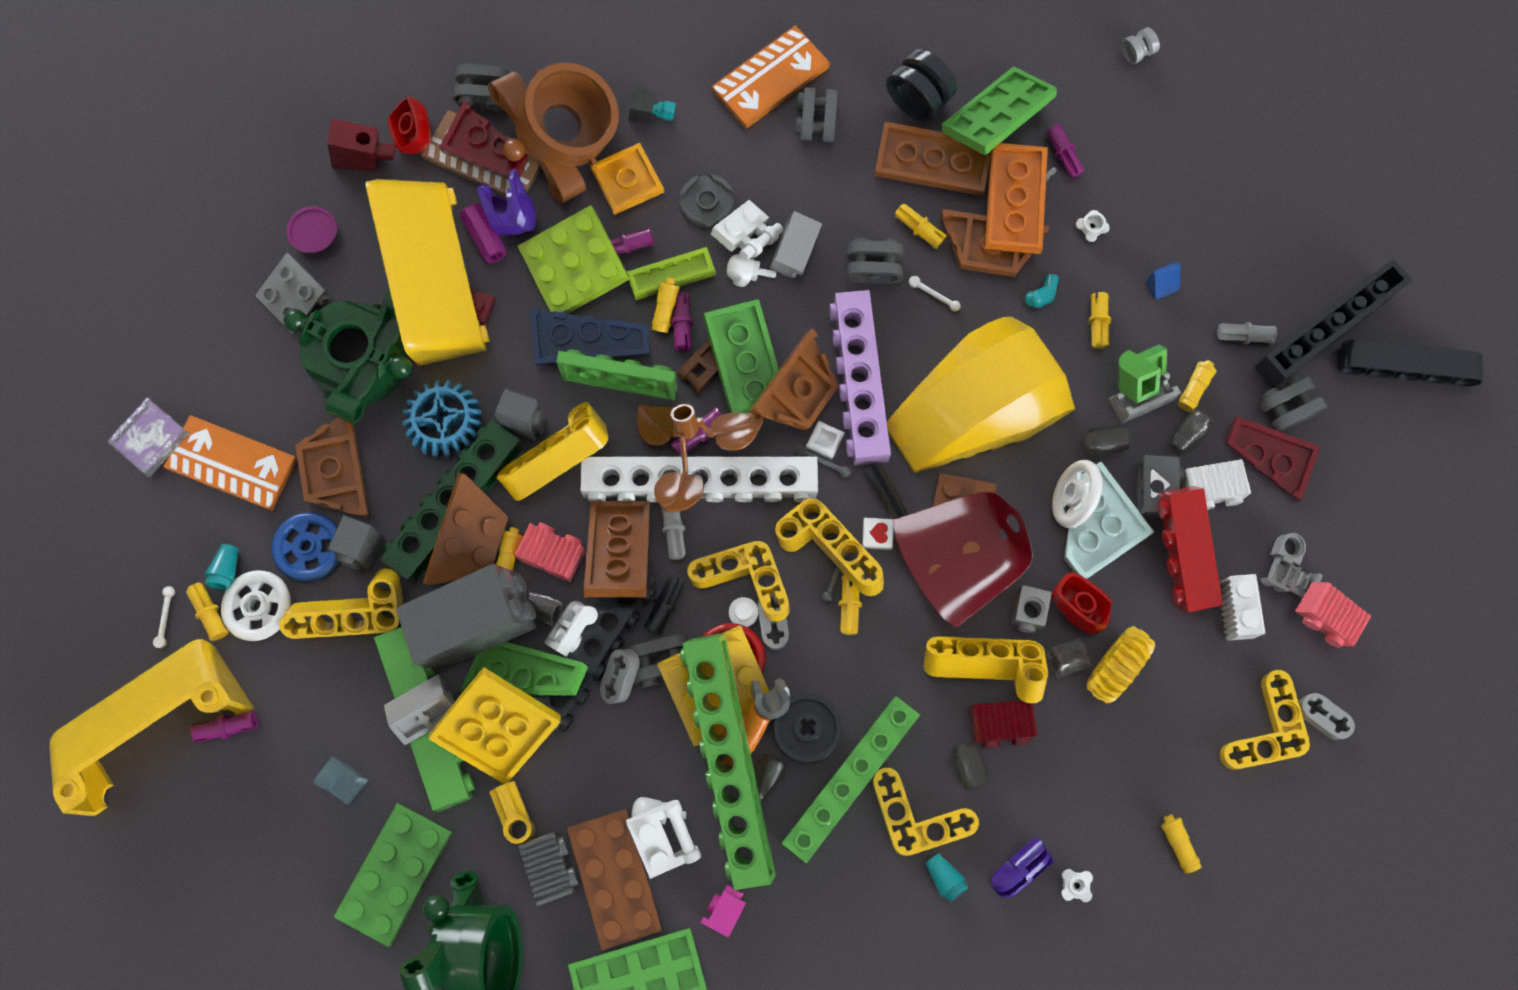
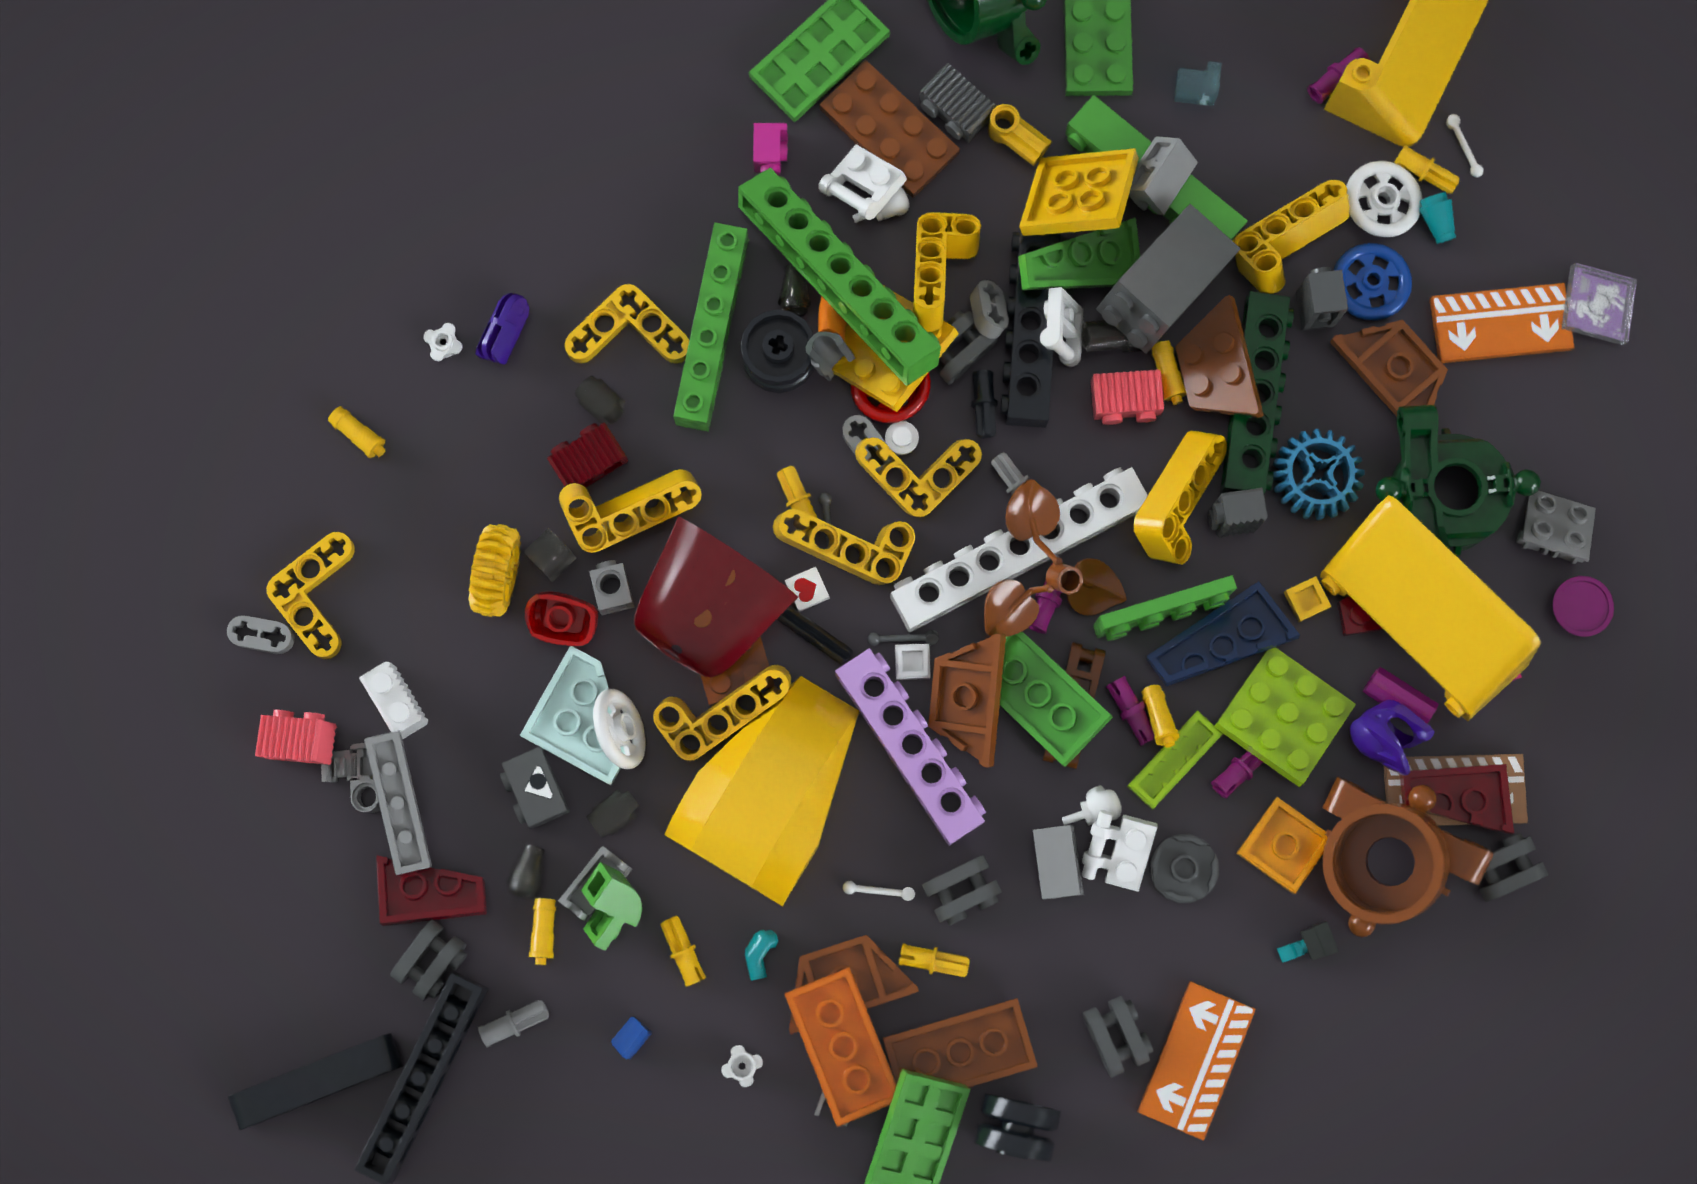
camera: 155 degrees right, 5 degrees up
(356, 146) = (1605, 715): dark red torso -> none
(410, 126) = (1554, 776): red piece -> none
(507, 334) = (1307, 599): none -> yellow plate
(617, 549) = (1060, 424): dark orange plate -> none
(647, 724) = (940, 238): none -> yellow beam
(946, 878) = (573, 285): teal cone -> none
(951, 467) = (727, 707): none -> yellow beam
(1065, 150) = (815, 1143): magenta axle -> none
(1190, 549) = (474, 729): red brick -> none
(1221, 482) = (475, 823): white brick -> none
(1273, 524) = (398, 802): none -> light grey plate

